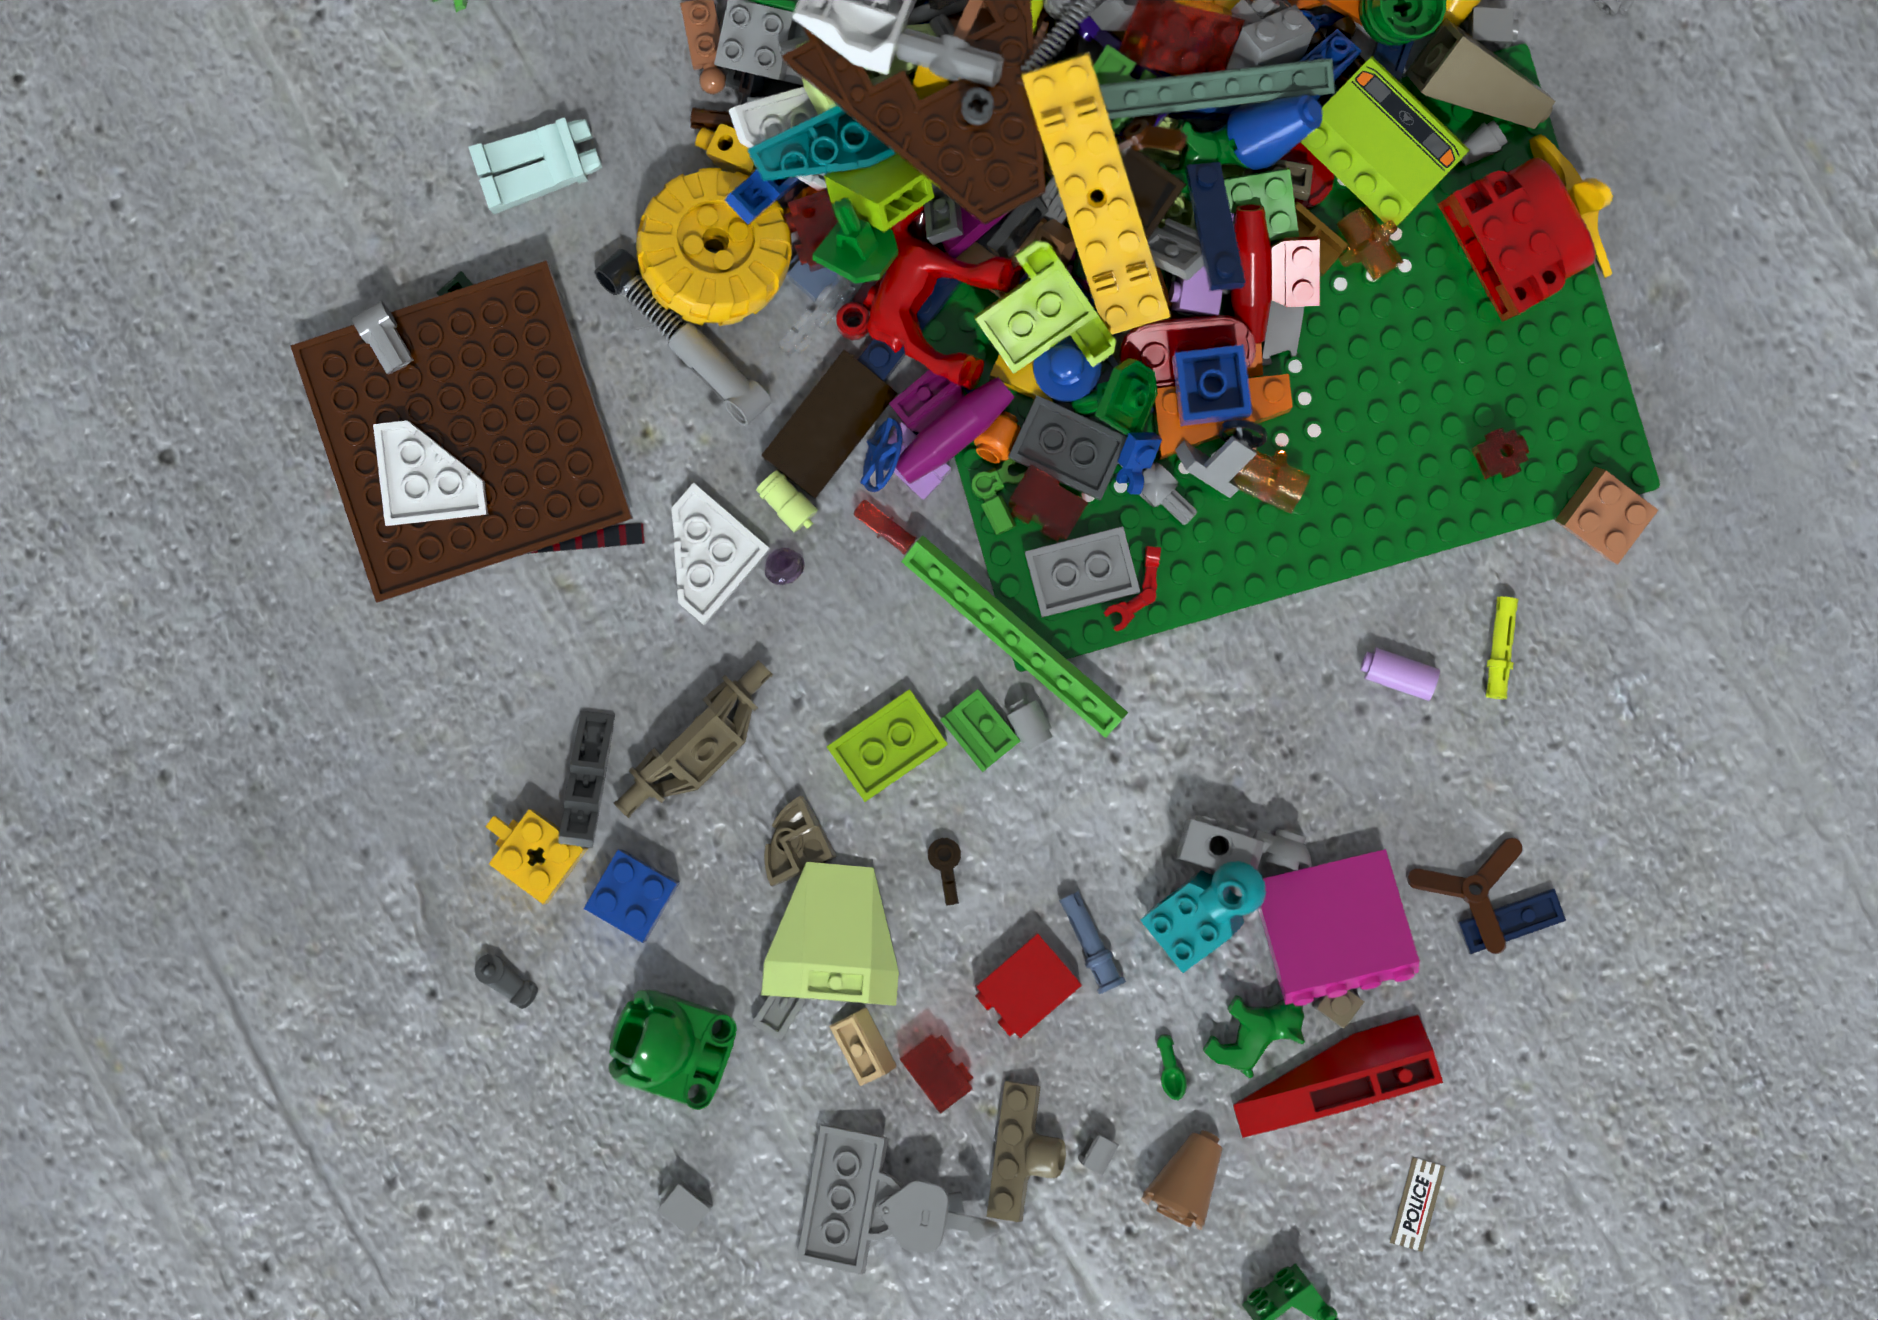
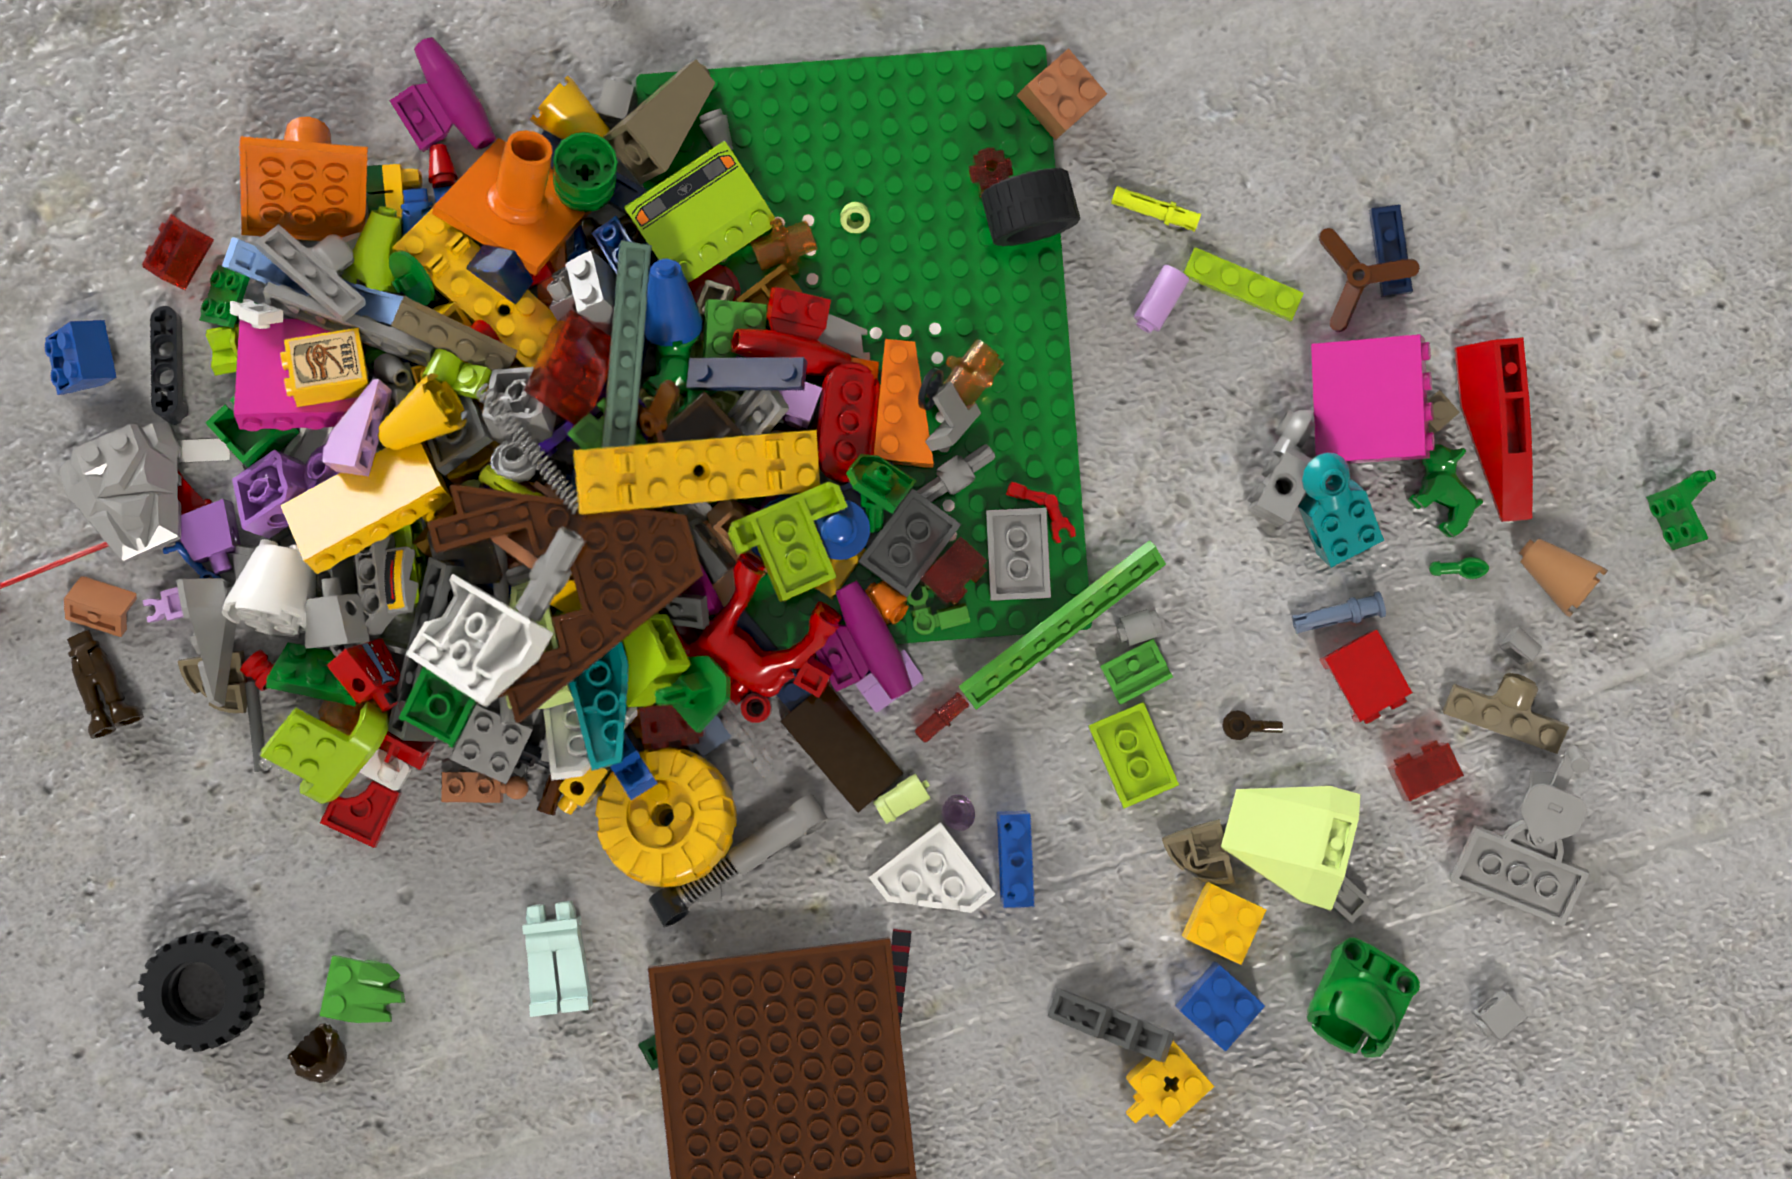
camera: 75 degrees left, 0 degrees up
(379, 330) = (678, 1130): light grey piece -> none
(422, 478) = (817, 1117): white plate -> none
(500, 977) = (1265, 1136): dark grey piece -> none
(701, 747) = (1104, 918): dark tan plate -> none
(723, 881) = (1223, 923): none -> yellow brick
(746, 635) = (1015, 859): none -> blue window
(863, 1046) = (1389, 830): tan slope -> none
(883, 455) = (881, 706): blue wheel -> none
(901, 374) = (813, 676): none -> red panel
(984, 99) = (593, 552): dark grey bush -> none
(1135, 456) = (928, 485): blue plate -> none
(1212, 385) = (884, 406): blue brick -> none
(1408, 316) = (855, 227): none -> yellowish green piece
(1417, 1204) = (1615, 382): sticker -> none
(1437, 762) = (1243, 284): none -> lime plate
(1469, 502) = (1030, 207): none -> black tyre
(1529, 228) = (801, 105): red brick -> none

